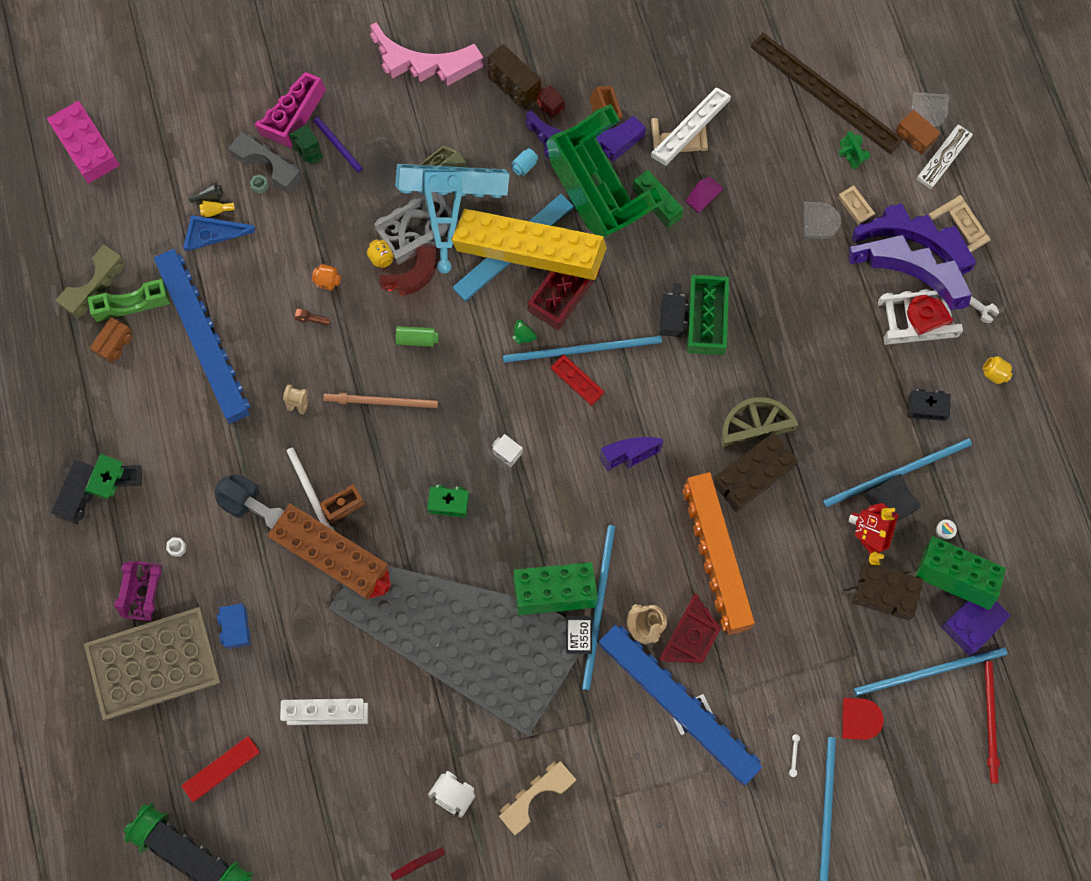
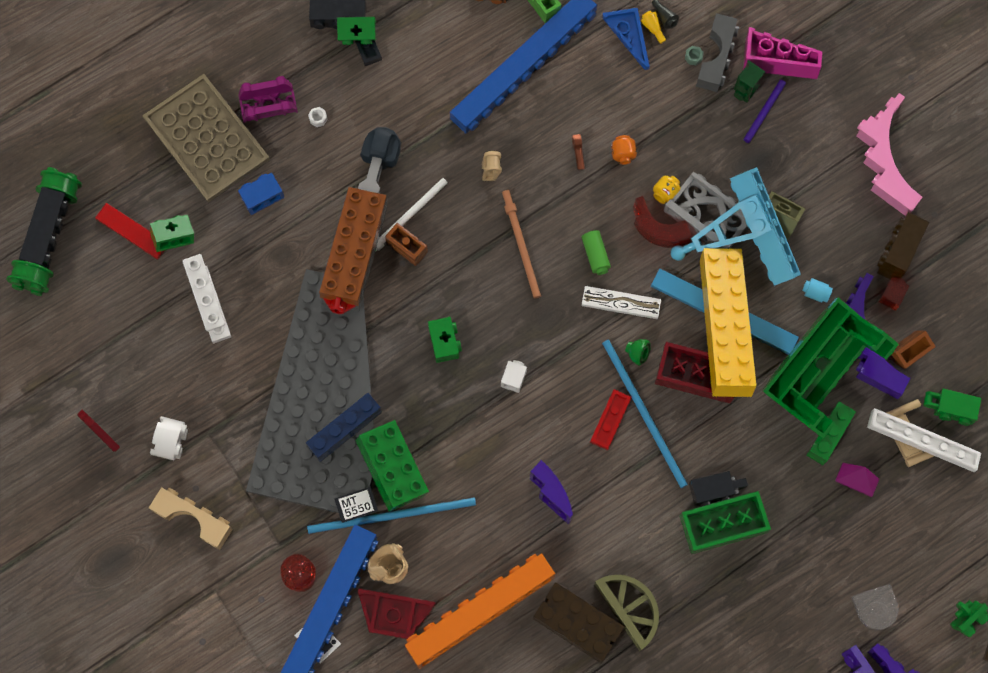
camera: 70 degrees right, 0 degrees up
(241, 727) = (172, 233): none -> brick
(471, 332) = (621, 302): none -> white tile
(503, 620) = (344, 427): none -> dark blue brick
(624, 711) = (298, 573): none -> clear red piece
(668, 92) = (954, 406): none -> green brick
(856, 205) = (908, 639): tan plate -> none

